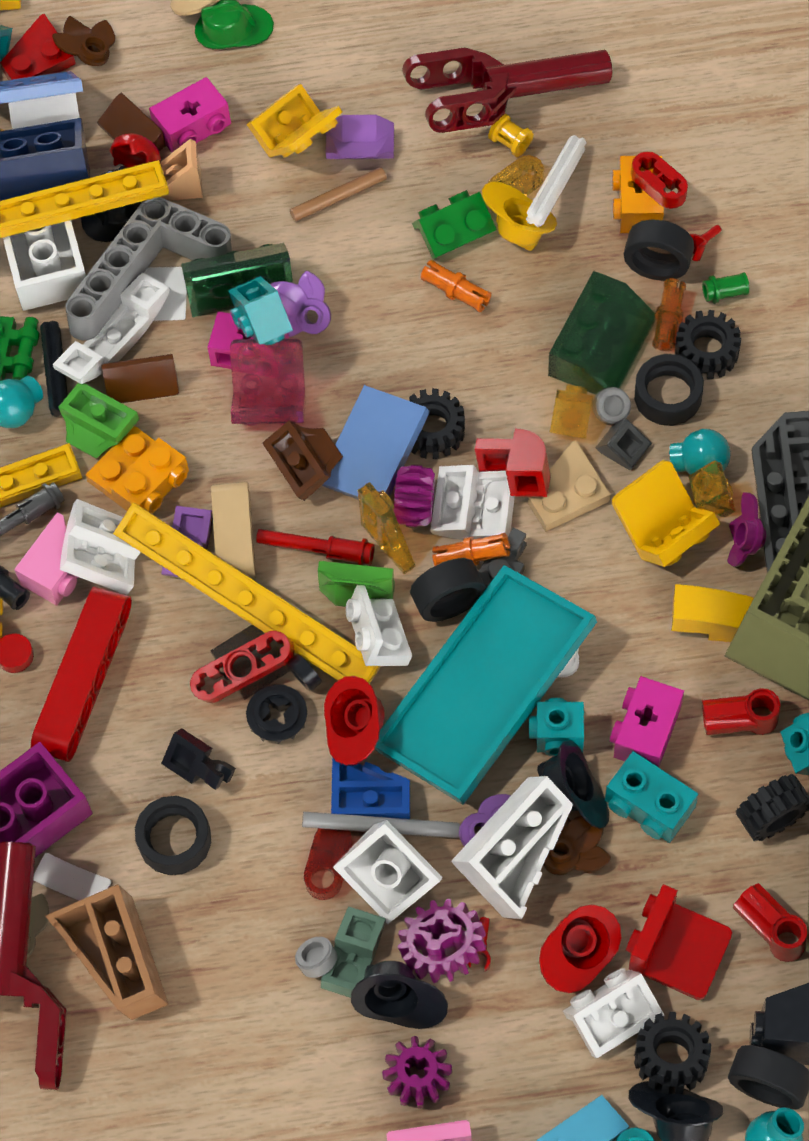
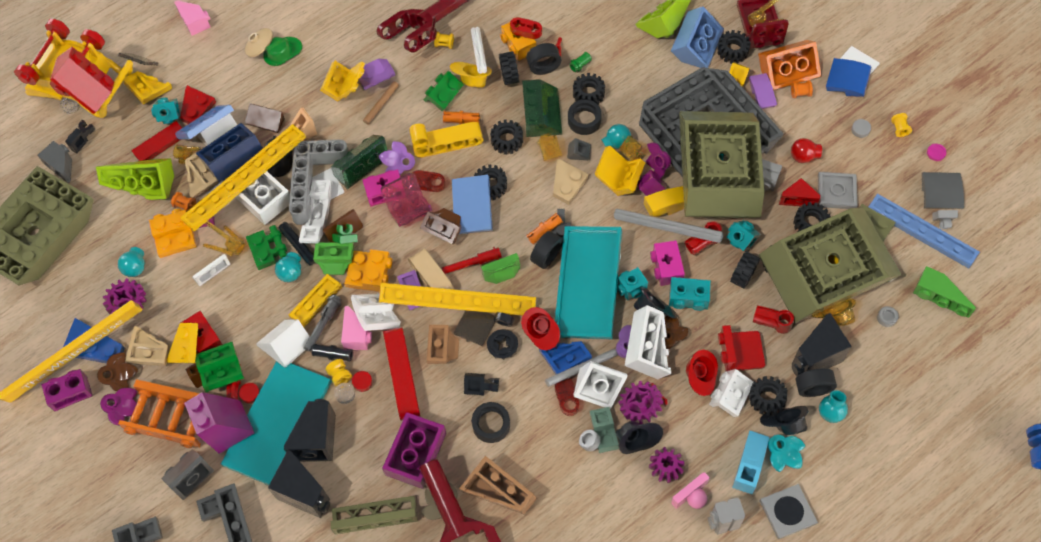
camera: 30 degrees left, 0 degrees up
(68, 878) = (458, 468): white sticker -> none
(86, 43) = (218, 89): reddish brown plate -> none
(131, 395) = (346, 236): none -> green tile
(133, 150) = (274, 126): red hair -> none
(173, 659) = (441, 345): none -> medium nougat slope
(191, 114) = (290, 98): dark pink brick -> none
(221, 688) = (462, 340): red beam -> none
(259, 312) = (387, 167): brick -> none
(324, 363) = (425, 179): none -> clear red piece
(377, 630) = (525, 283): white bracket -> none
(381, 524) = (499, 236): clear yellow wing -> none
(400, 310) = (444, 139): none -> yellow beam
(414, 495) = (504, 217): magenta gear -> none
(471, 503) = (530, 208): white slope -> none
(510, 375) = (510, 145): none -> black tyre
(513, 174) = (455, 56): clear yellow beam -> none
(522, 459) = (541, 176): red brick -> none
(587, 237) = (509, 68): none -> black tyre
(611, 405) = (564, 135): light grey tile -> none
(669, 314) = (564, 85): clear orange pin -> none
(689, 658) = (668, 225): none -> light grey axle
(710, 568) = (651, 183): none -> magenta panel

